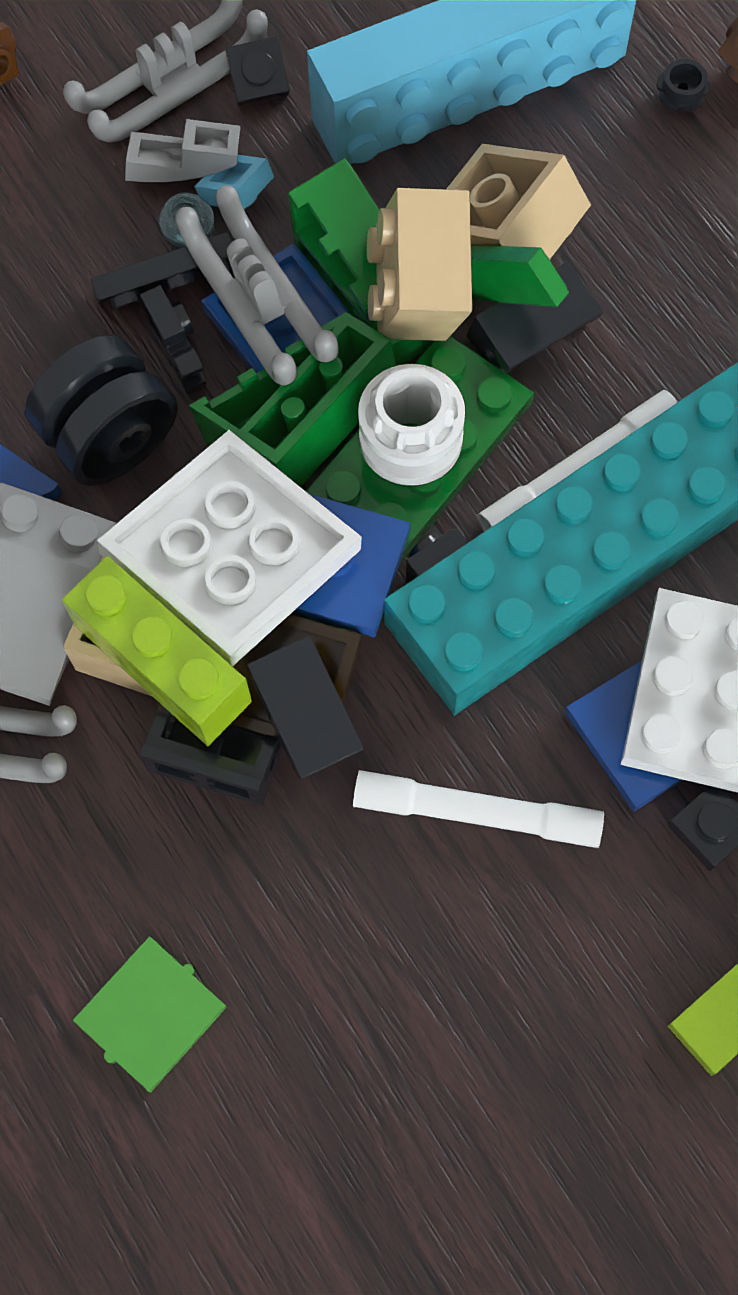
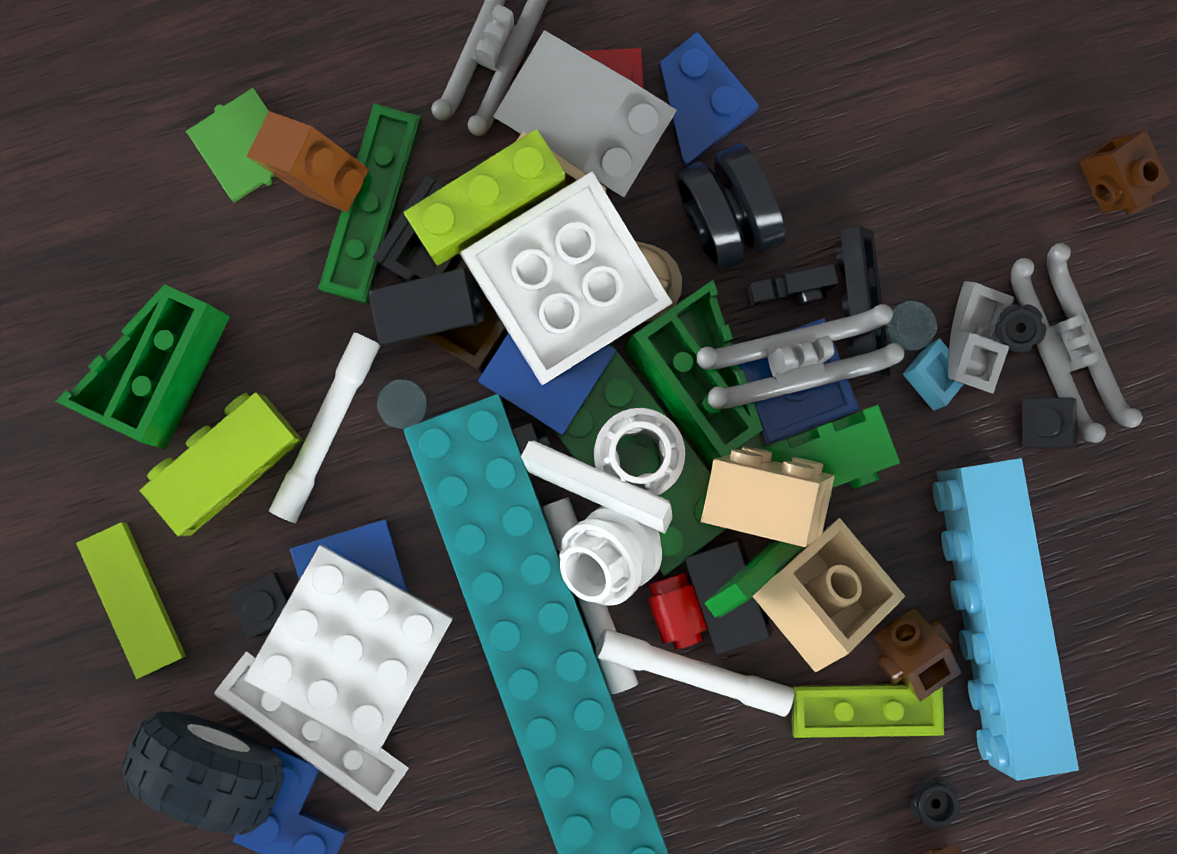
camera: 100 degrees right, 15 degrees up
(157, 896) = (308, 161): none -> dark orange brick
(163, 100) = (1020, 341): none -> black plate
(188, 832) = (360, 232): none -> green tile
(423, 727) = (402, 404): none -> clear light blue plate
(461, 449) = (597, 486): none -> white tile
(474, 1032) = (151, 369): none -> green wedge
(530, 435) = (609, 557): none -> white piece
(538, 120) = (917, 654): none -> reddish brown brick
(560, 916) = (220, 463): none -> lime brick
(568, 368) = (677, 611): none -> red brick
(610, 172) = (865, 711): none -> lime tile
(630, 385) = (642, 656): none -> white piece

